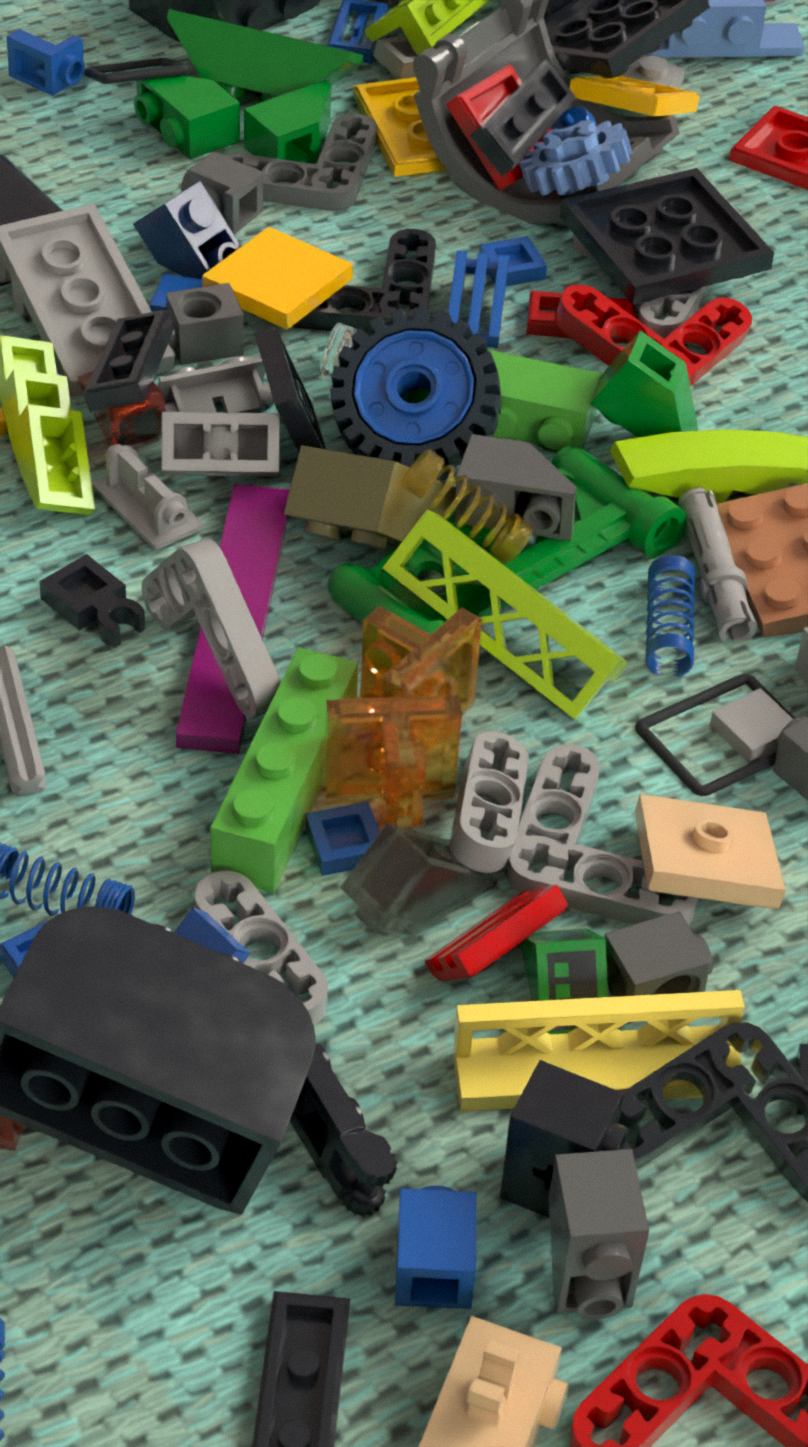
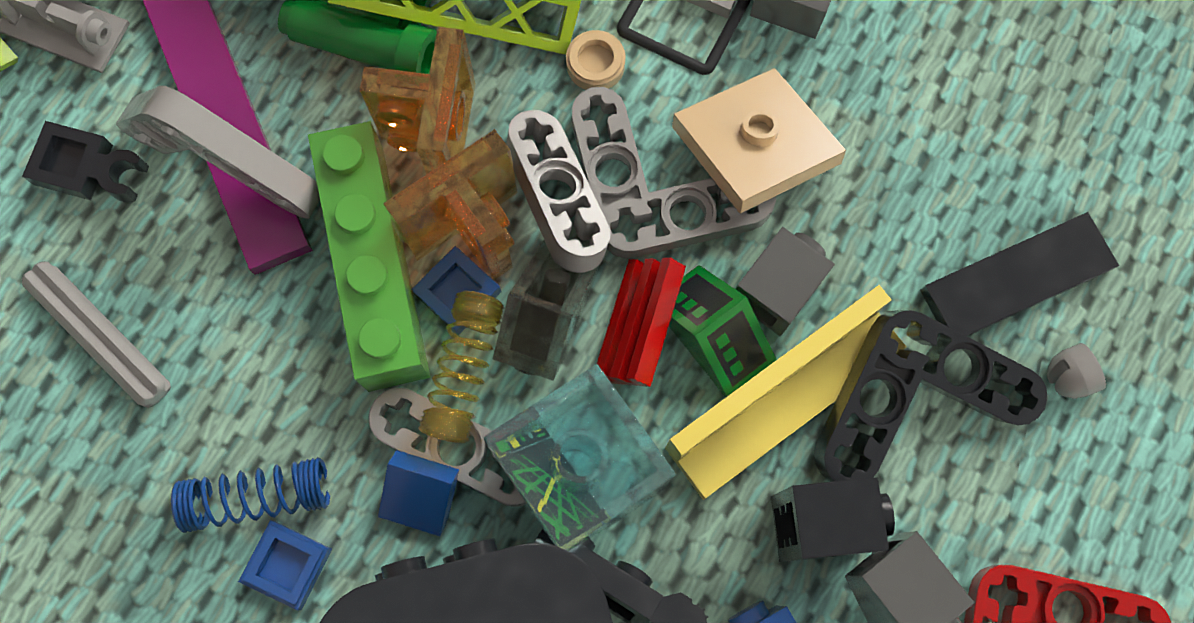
camera: 30 degrees left, 30 degrees up
(273, 894) = (480, 314): none -> clear yellow piece
(369, 988) = (580, 459): none -> clear light blue slope
(600, 731) = (595, 60): none -> tan tile

